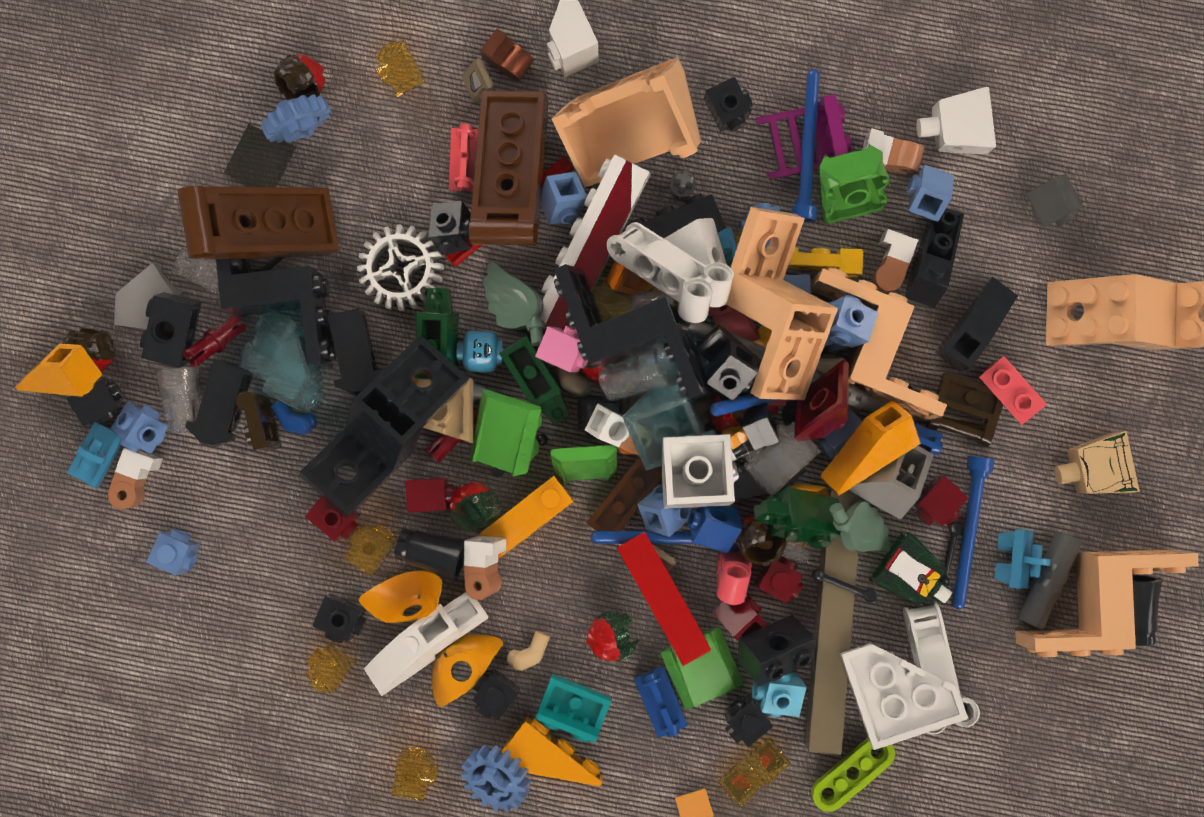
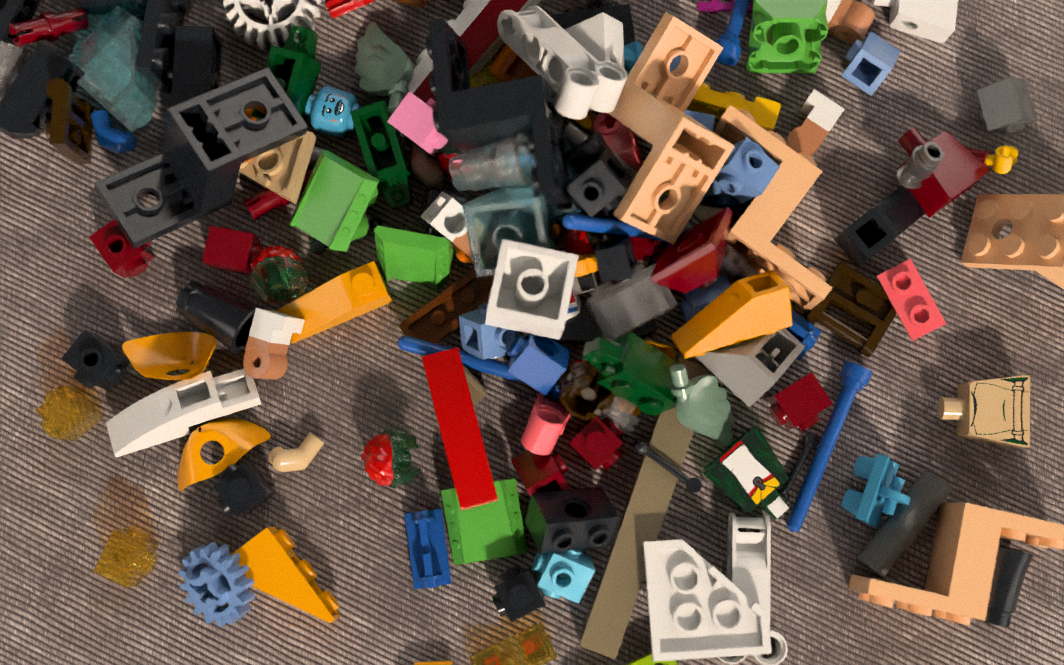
camera: 15 degrees right, 5 degrees down
(370, 548) = (152, 293): clear yellow brick -> none
(573, 708) = (326, 529): teal bracket -> none
(935, 259) = (858, 136): black slope -> none
(1016, 269) = (946, 168): none -> dark red torso

